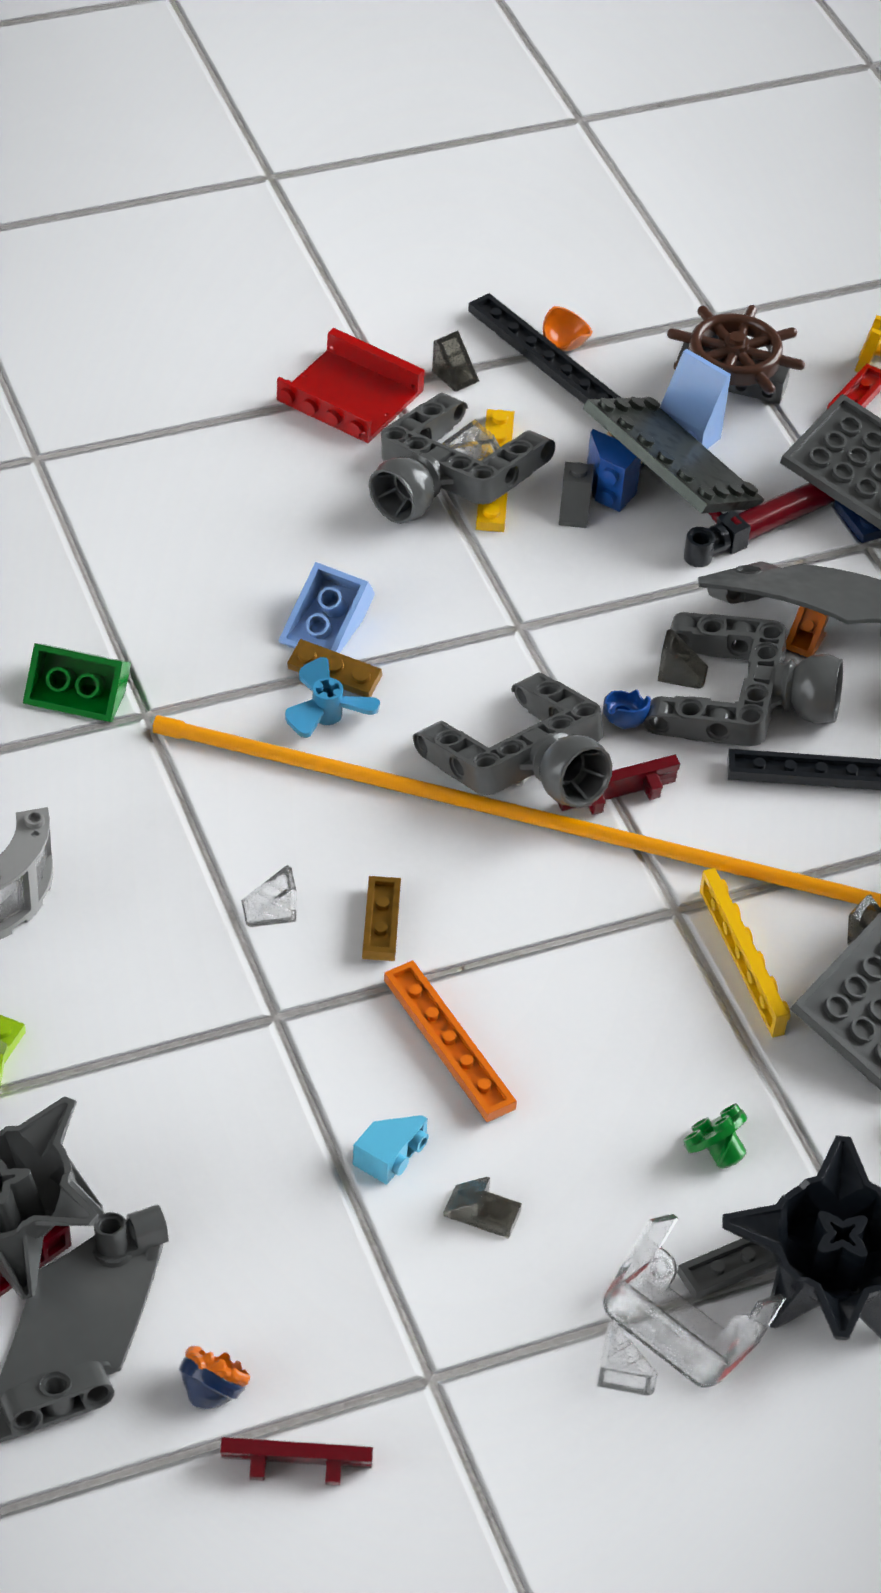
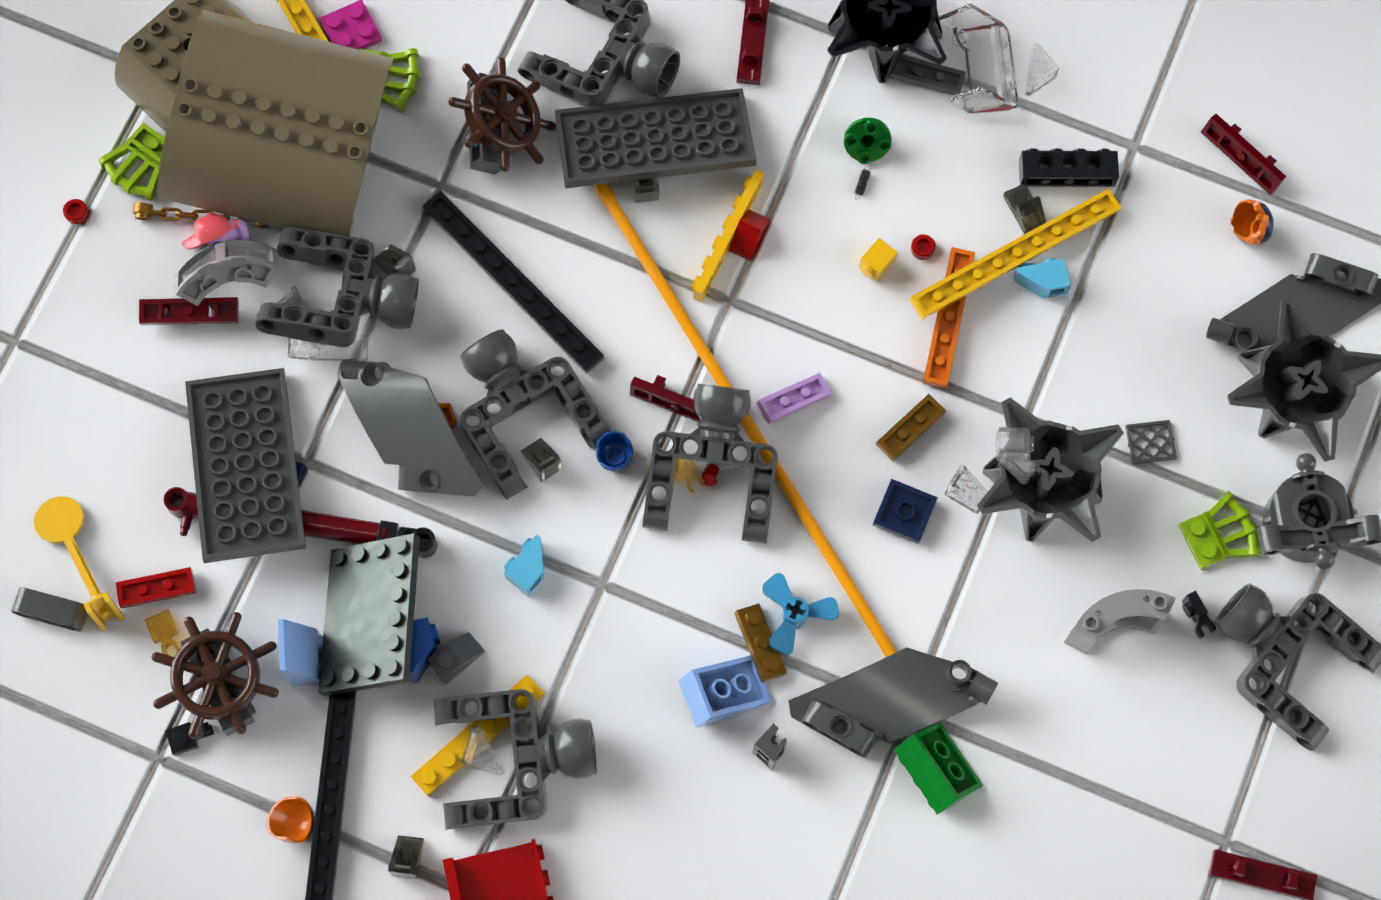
camera: 135 degrees left, 25 degrees up
(139, 1099) = (1148, 425): none -> dark grey window
(186, 687) = (891, 699): none -> dark grey panel
(199, 931) = (1064, 476): none -> dark grey piece
(241, 588) = (767, 749): none -> dark grey hinge
(249, 890) = (1014, 450): none -> clear slope
(313, 847) = (904, 511): none -> dark blue plate
(441, 1145) = (1014, 254): none -> yellow plate
(510, 1242) = (1058, 176): none -> black brick
(518, 860) = (793, 398): none -> lavender hinge
(547, 1092) = (923, 247): none -> red tile
(576, 1037) = (877, 260): none -> yellow brick
(594, 586) = (527, 568): none -> medium azure slope
(676, 1106) = (862, 182): none -> clear smoke piece
(729, 975) = (748, 234): none -> red slope
(816, 379) = (163, 629): none -> clear yellow plate

